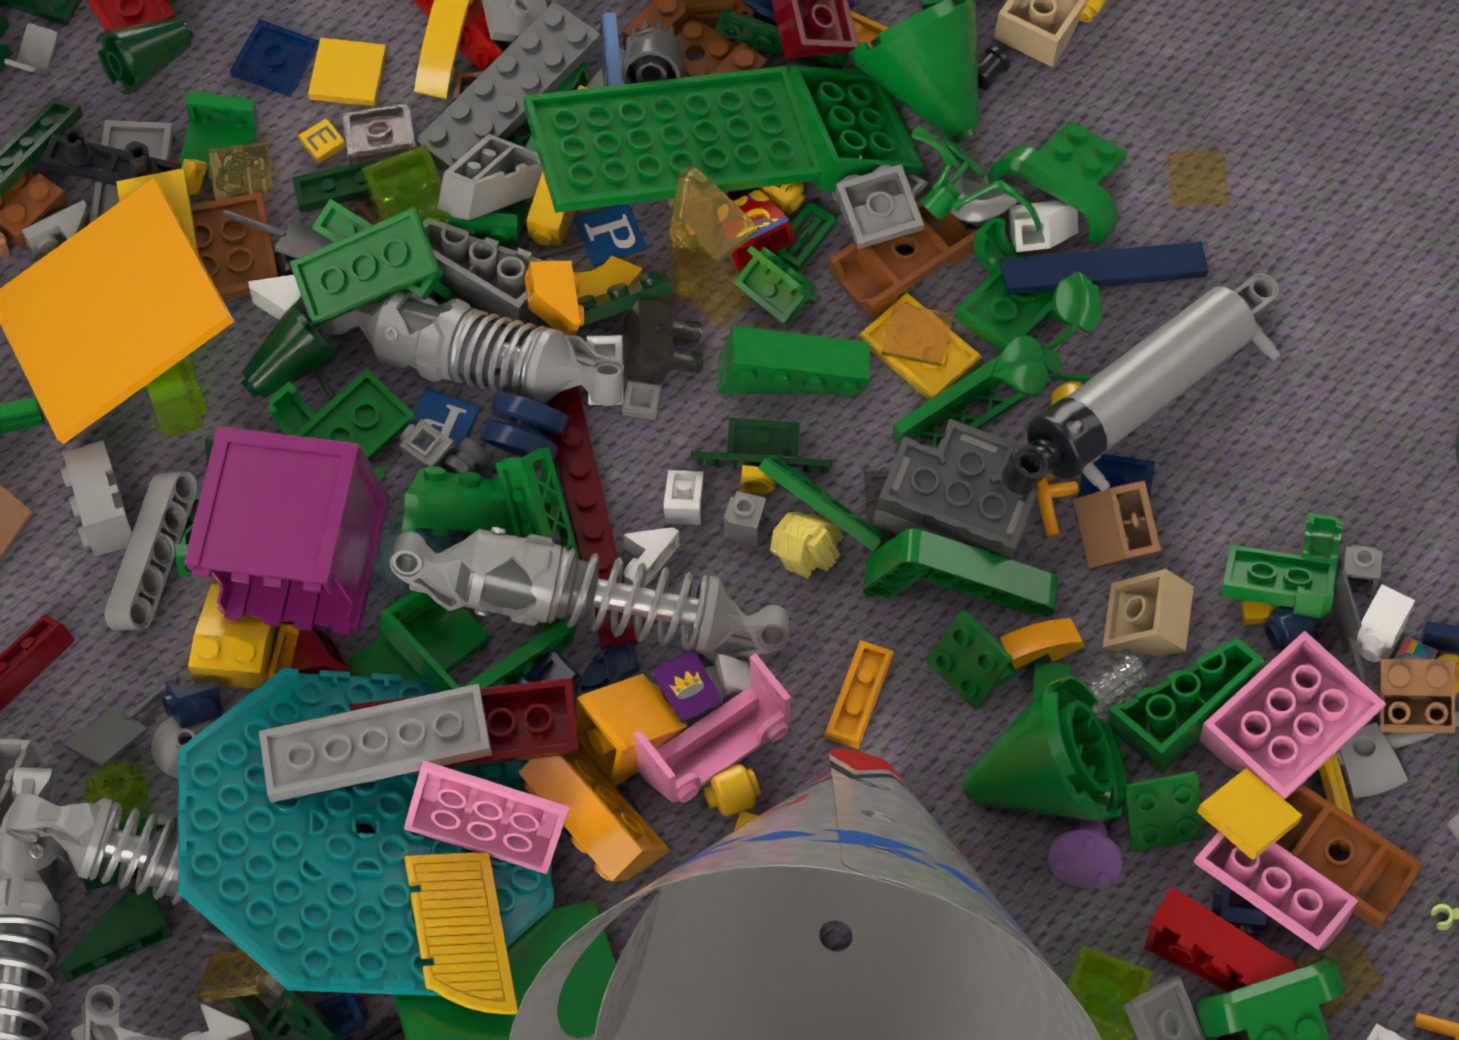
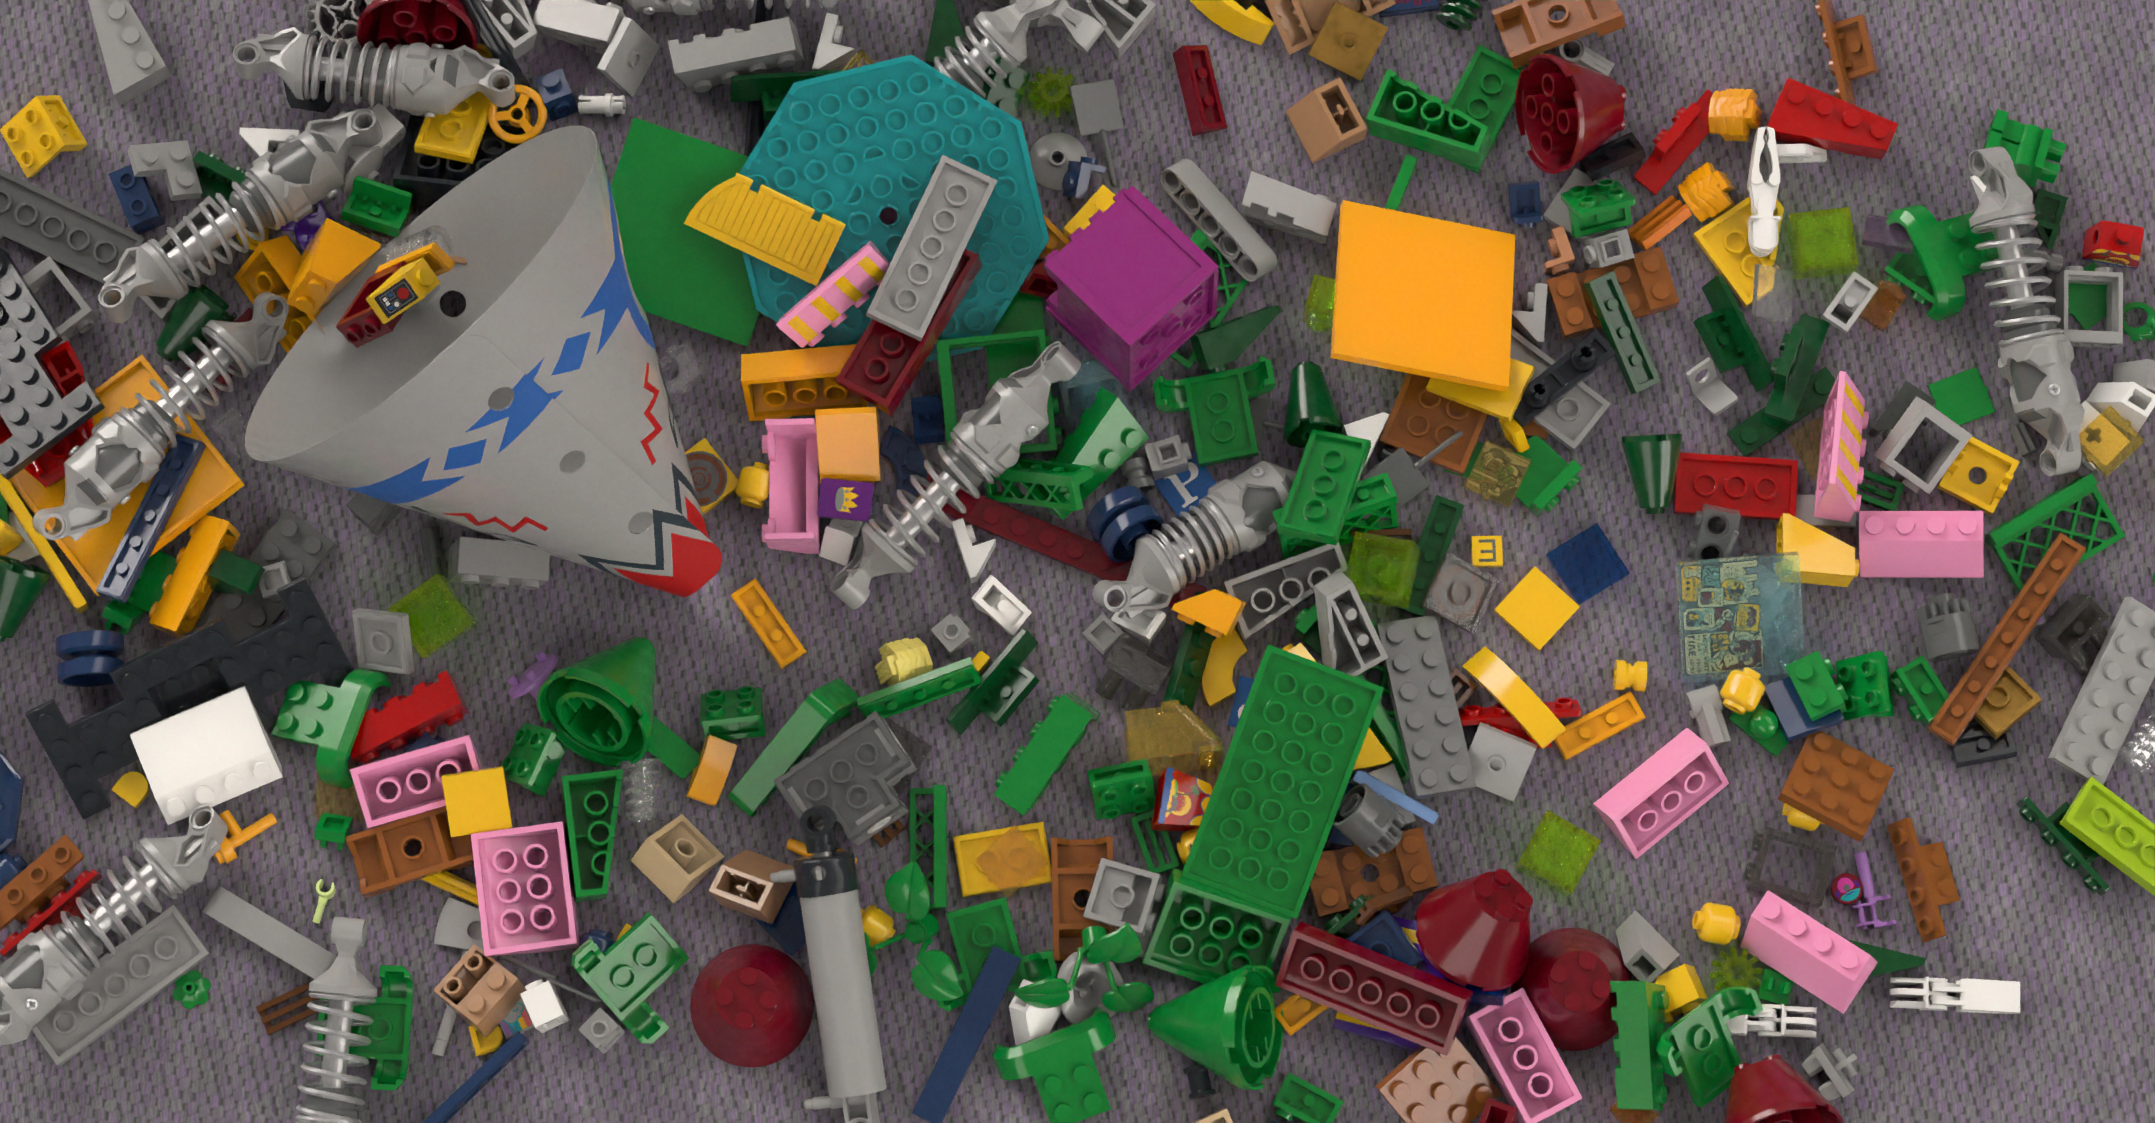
camera: 125 degrees right, 15 degrees up
(1226, 466) = (751, 1005): none -> dark red cone
(1381, 946) = (333, 829): none -> green tile

